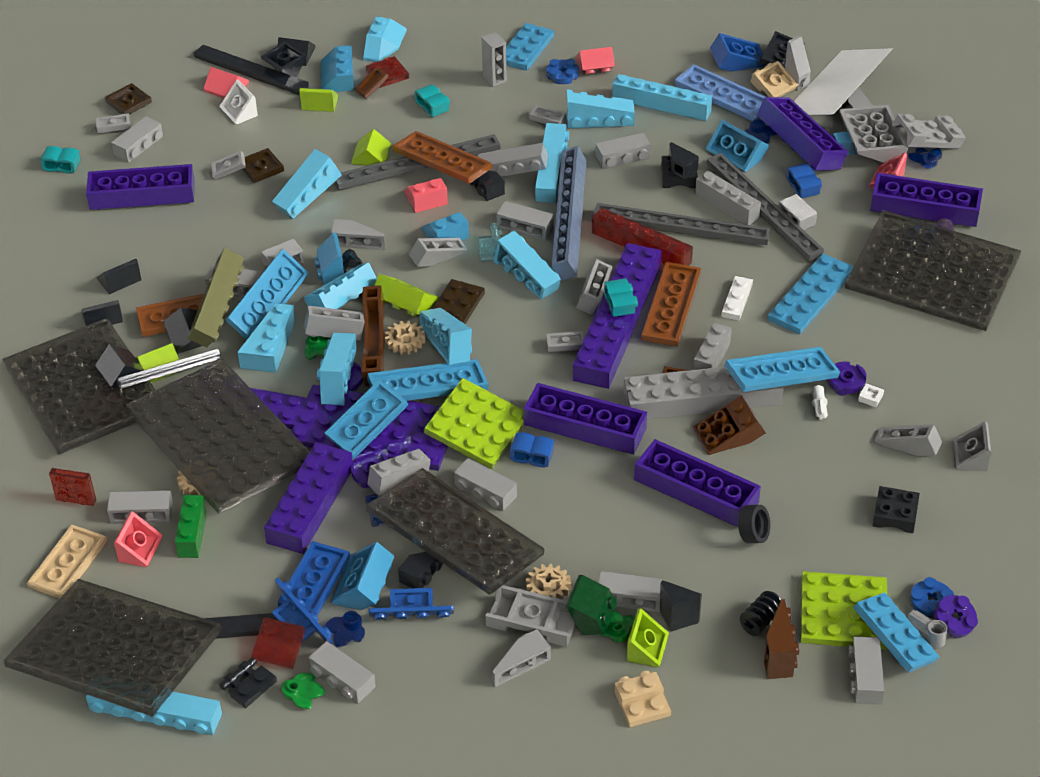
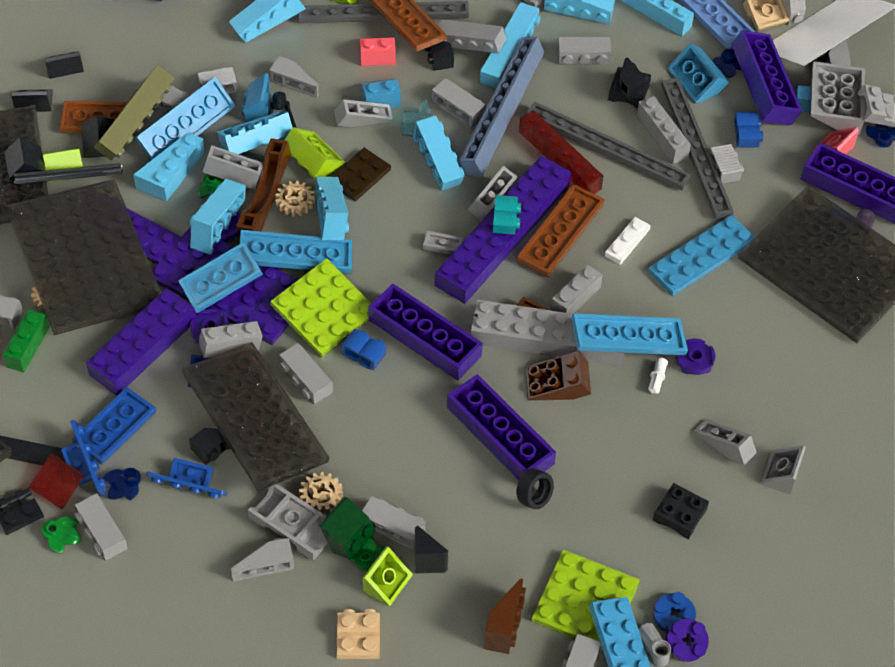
camera: 15 degrees right, 10 degrees up
(363, 577) = (158, 437): dark azure slope -> none
(760, 613) = (503, 580): black piece -> none
(871, 395) = (710, 382): white plate -> none

